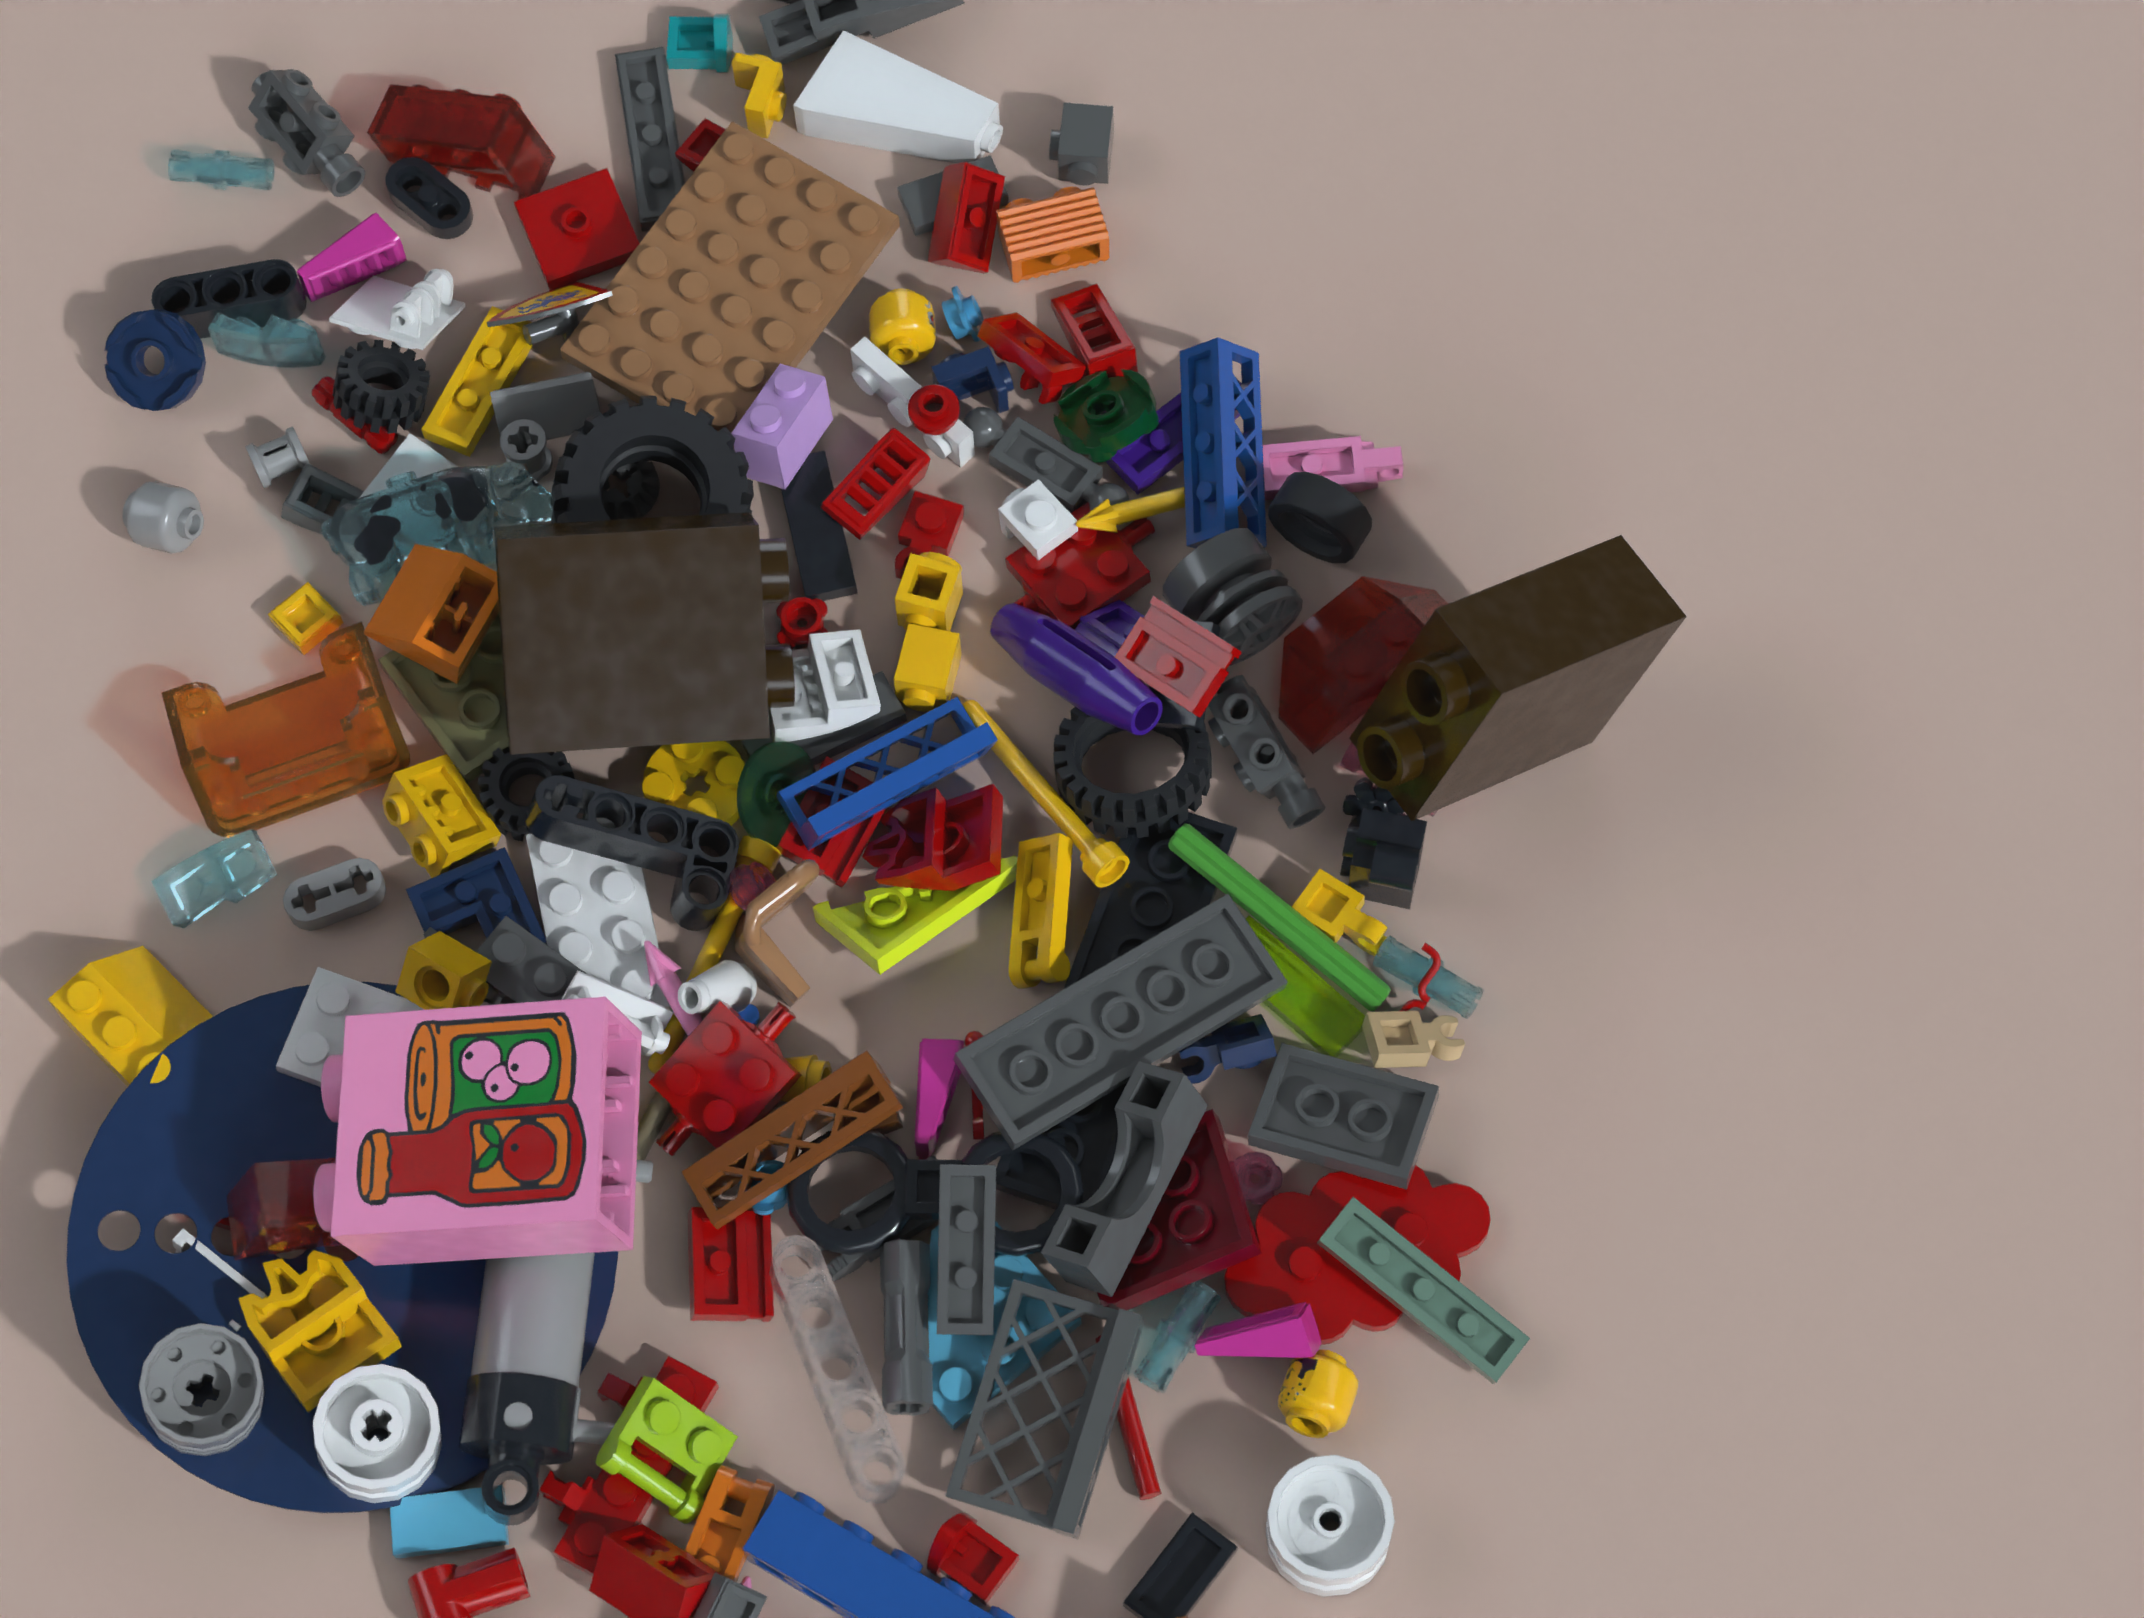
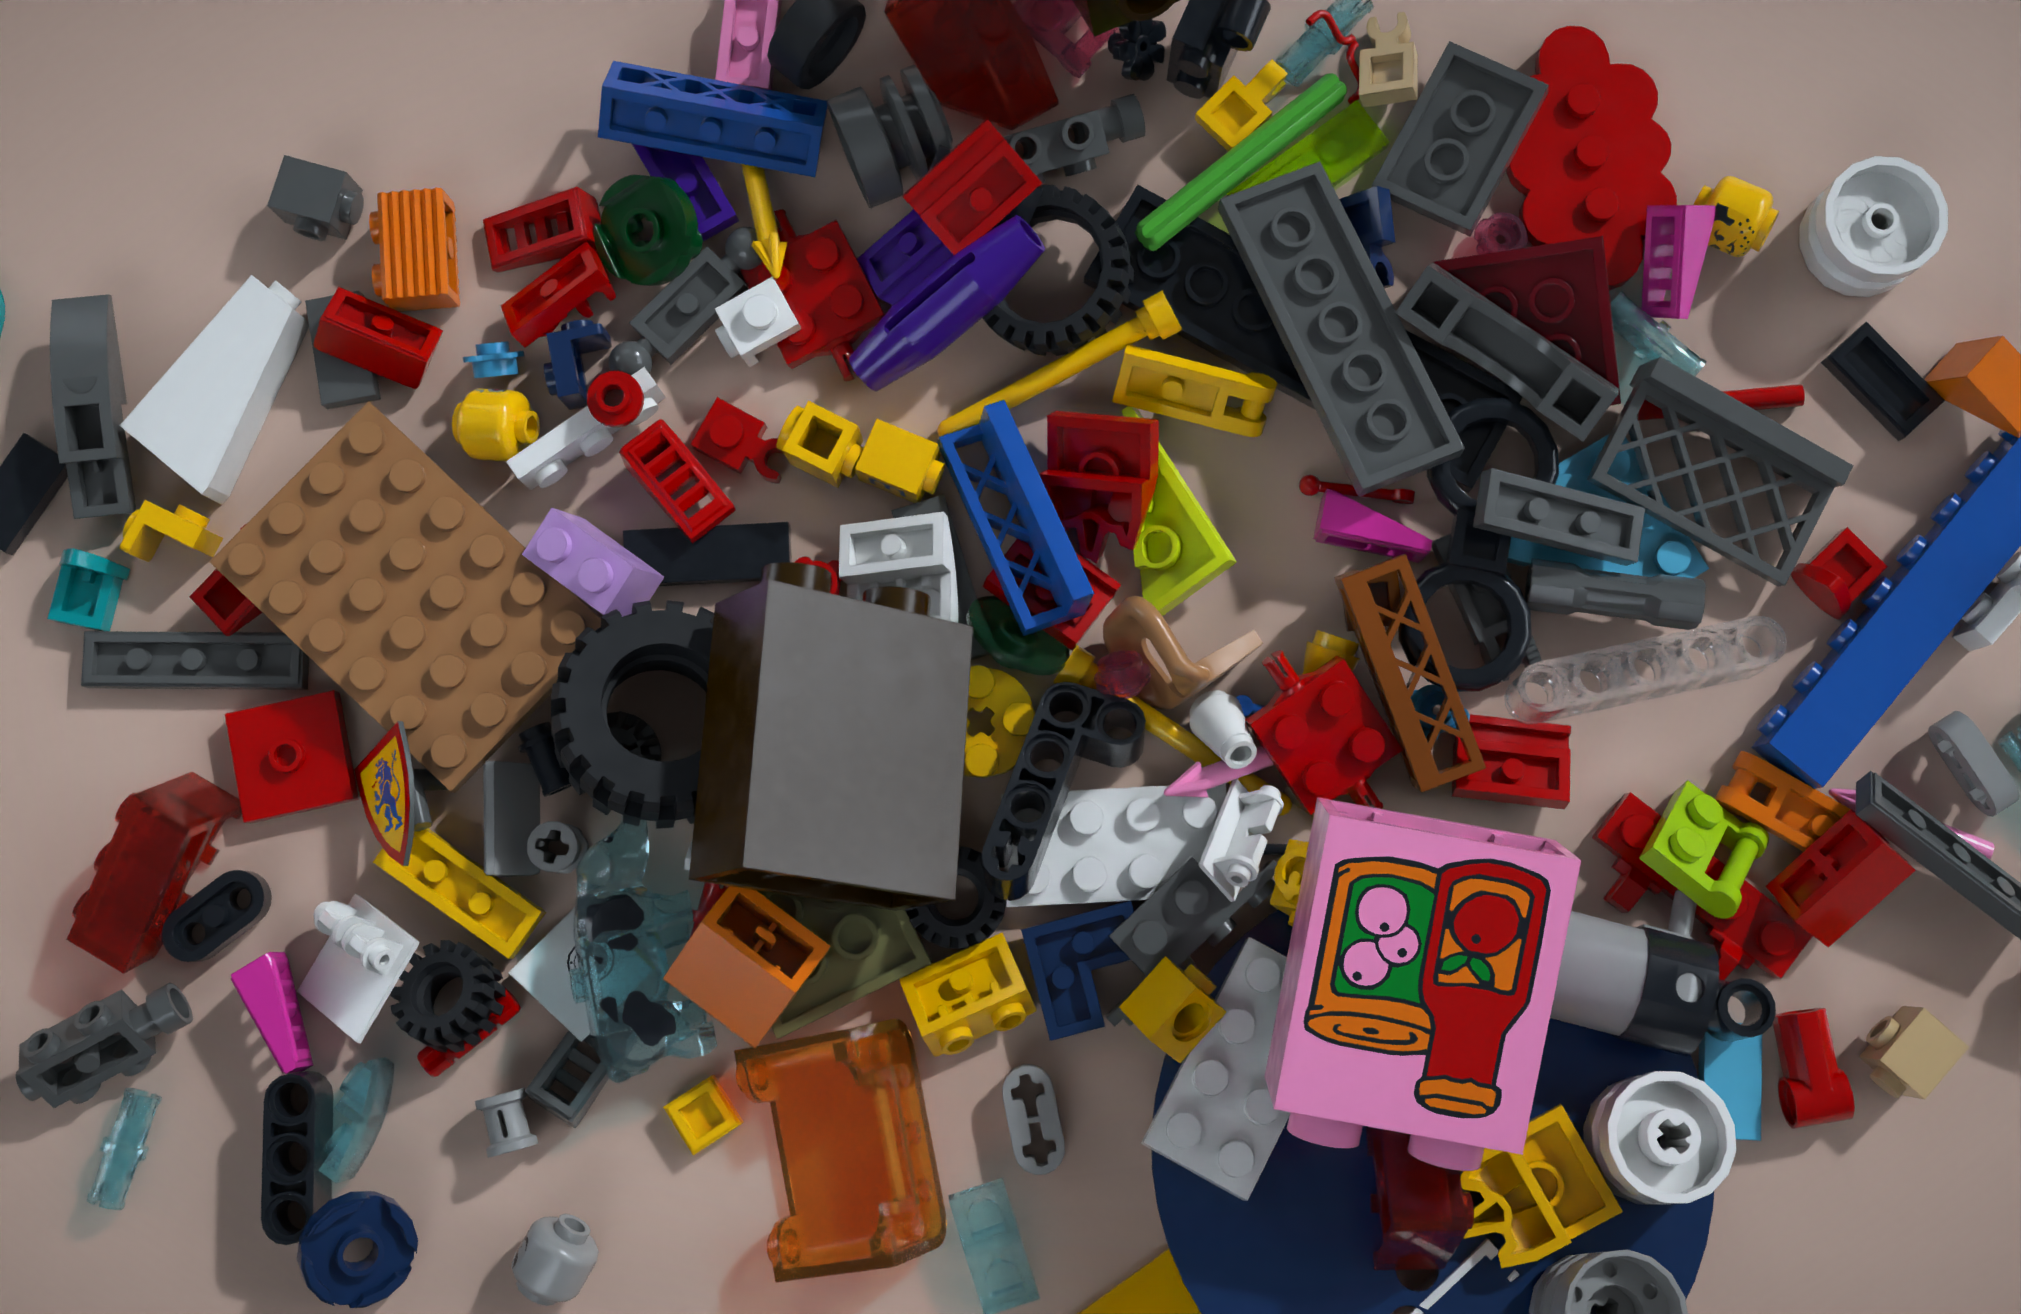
camera: 75 degrees left, 15 degrees up
(1423, 1290) = (1654, 96): sand green plate -> none

